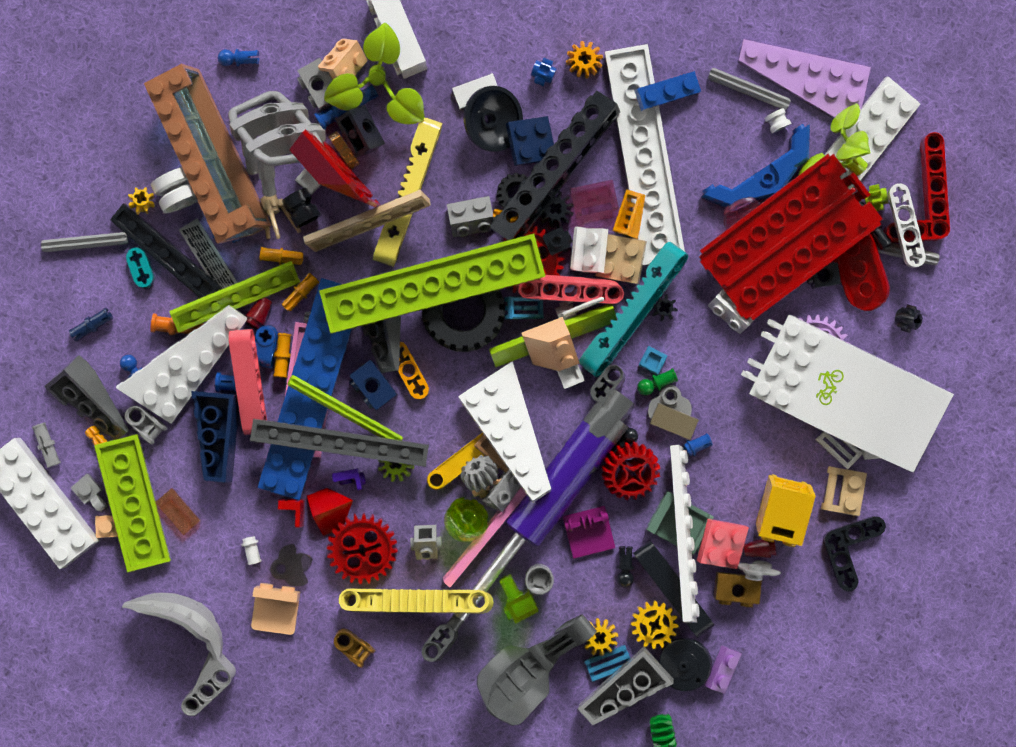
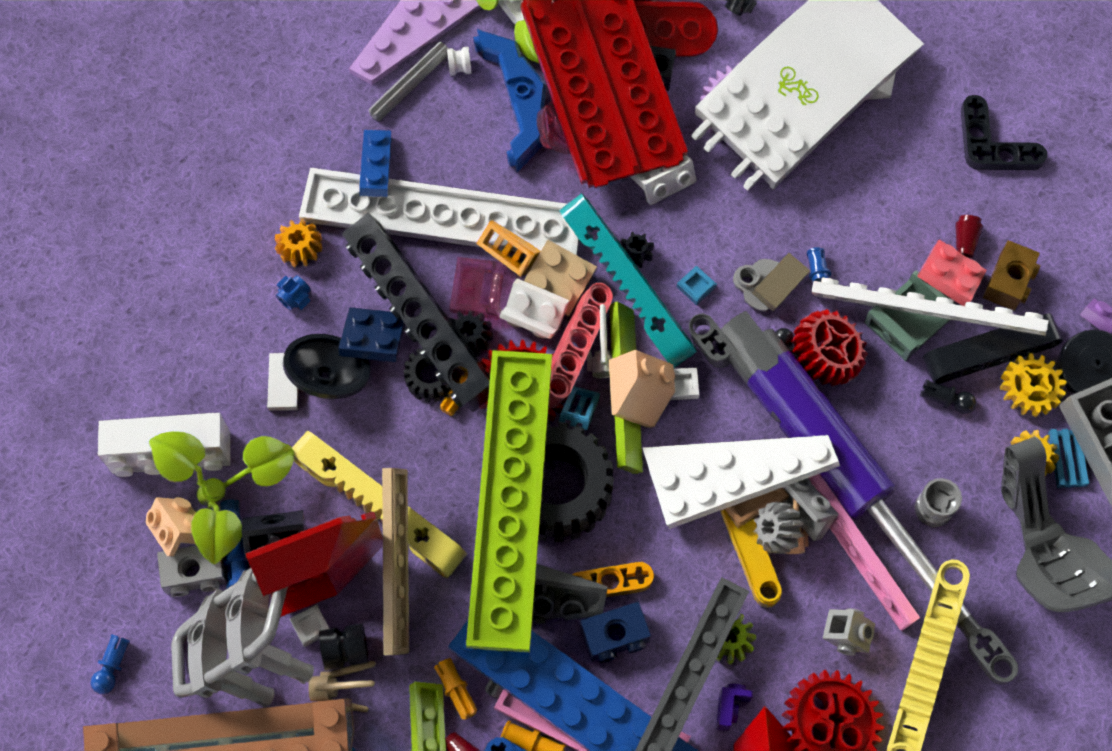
camera: 75 degrees left, 20 degrees down
(281, 256) = (397, 699): light orange axle -> none
(341, 408) = (632, 680): lime axle -> none
(465, 519) = (834, 568): clear neon green cylinder -> none
(470, 216) = (439, 437): light grey bracket -> none
(518, 603) = (964, 535): clear neon green brick -> none
(557, 241) = (510, 338): black bracket -> none
(589, 532) = (891, 426): magenta hinge -> none
(646, 387) = (727, 300): green pin -> none
(757, 570) = (996, 242): light grey plate -> none
(785, 511) = (926, 183): yellow container -> none
(819, 439) = (853, 134): white tile -> none
(850, 494) = (925, 121): tan plate -> none

